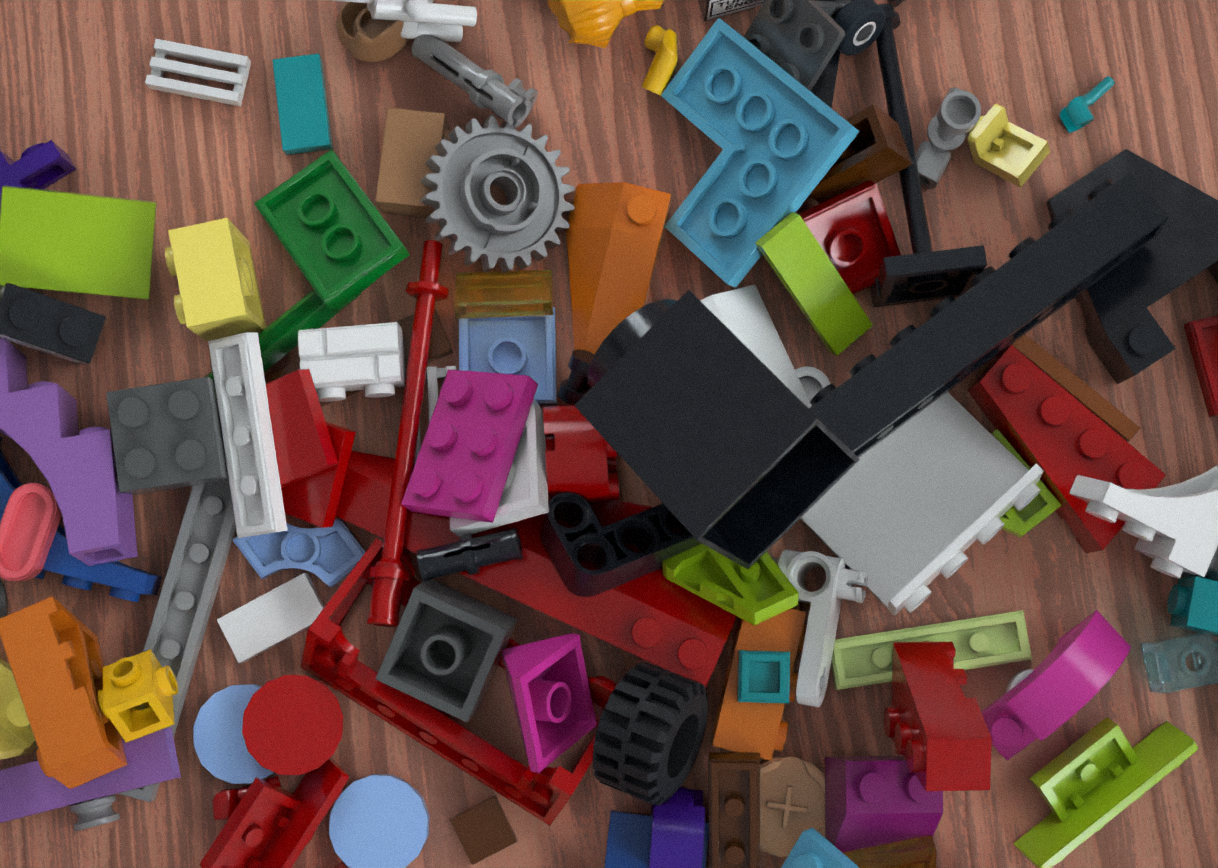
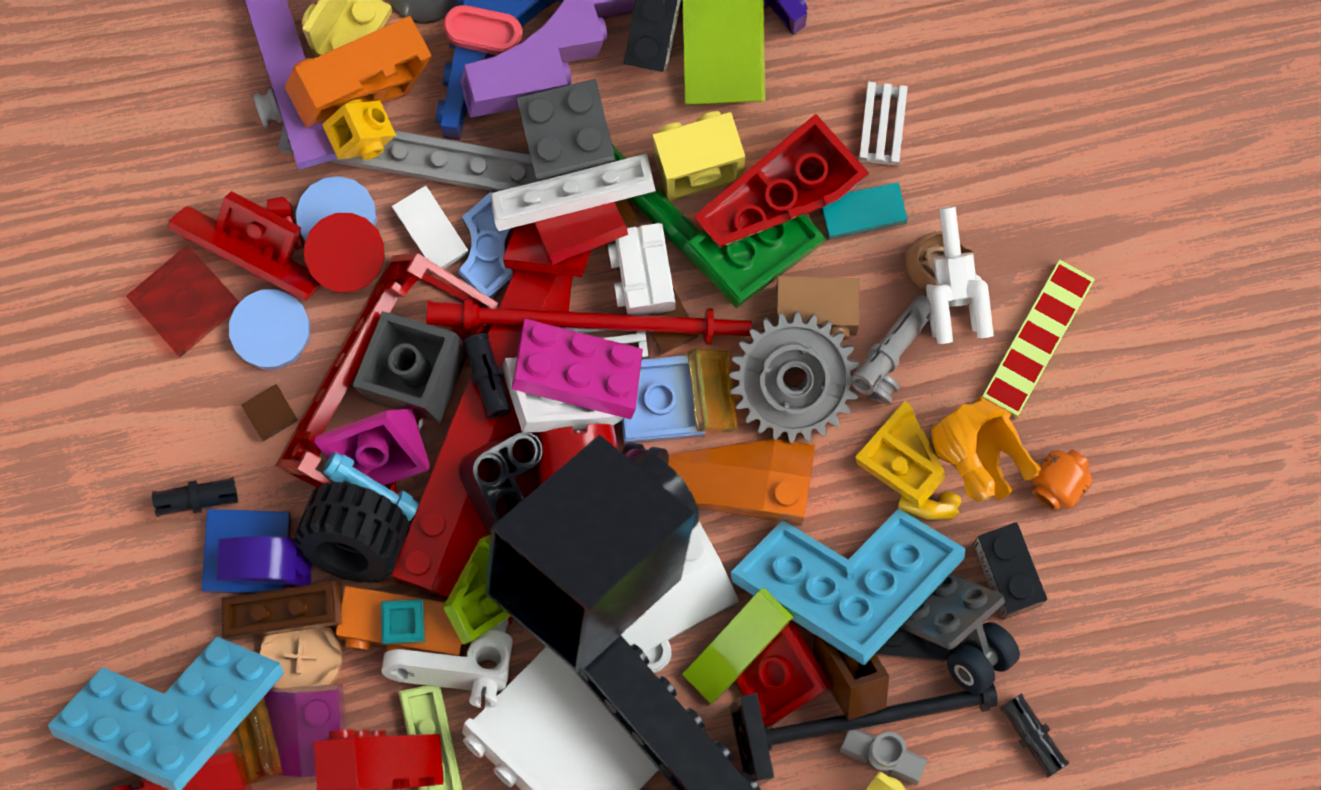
camera: 85 degrees right, 5 degrees down
(261, 174) = (791, 180): none -> red wedge
(573, 741) = (340, 469): none -> medium azure bar
(603, 81) = (903, 457): none -> yellow wing

